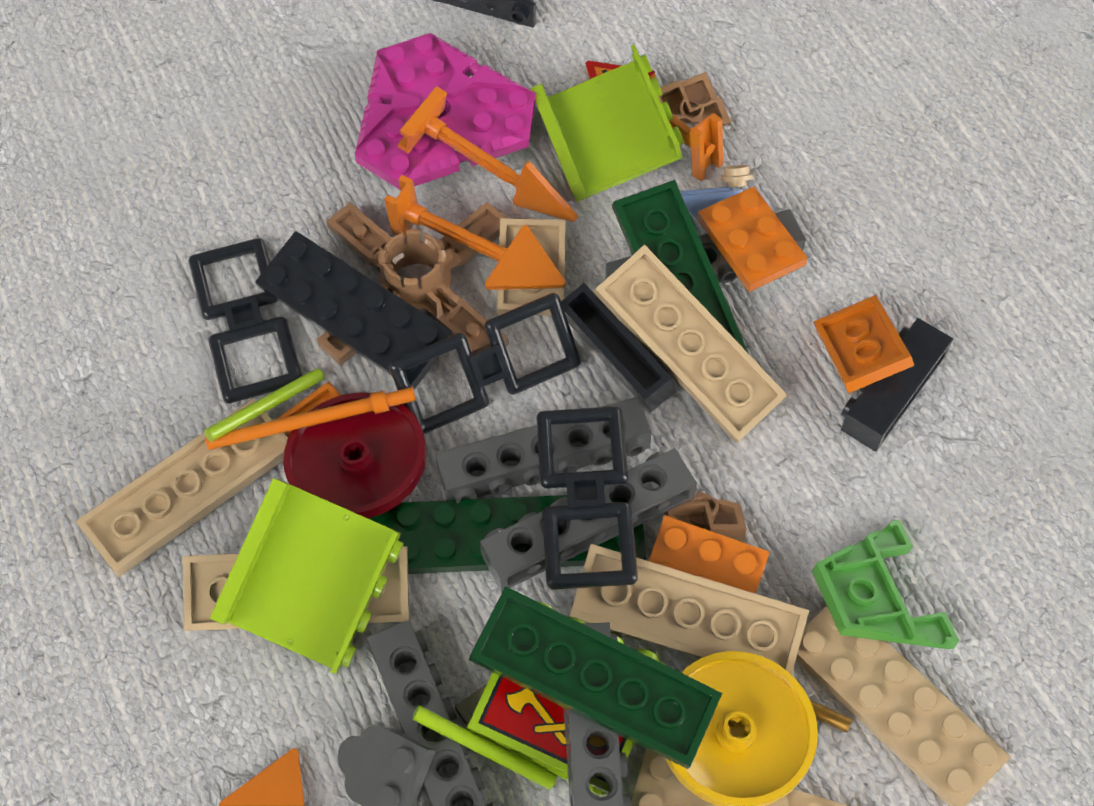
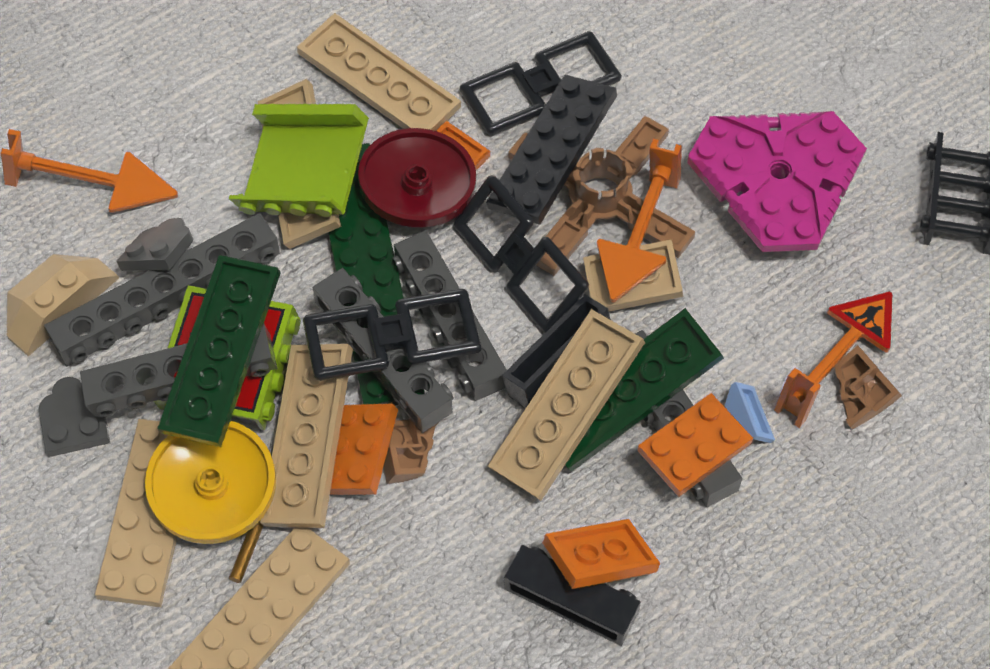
camera: 80 degrees right, 0 degrees up
(263, 405) = (454, 108): lime bar -> none
(378, 402) = (460, 176): orange bar -> none
(484, 747) = (186, 279): lime bar -> none
(532, 188) = (746, 154): orange piece -> none
(610, 128) = (802, 311): lime panel -> none
(736, 175) = (782, 436): tan plate -> none
(866, 598) = (348, 572): bright green wing -> none

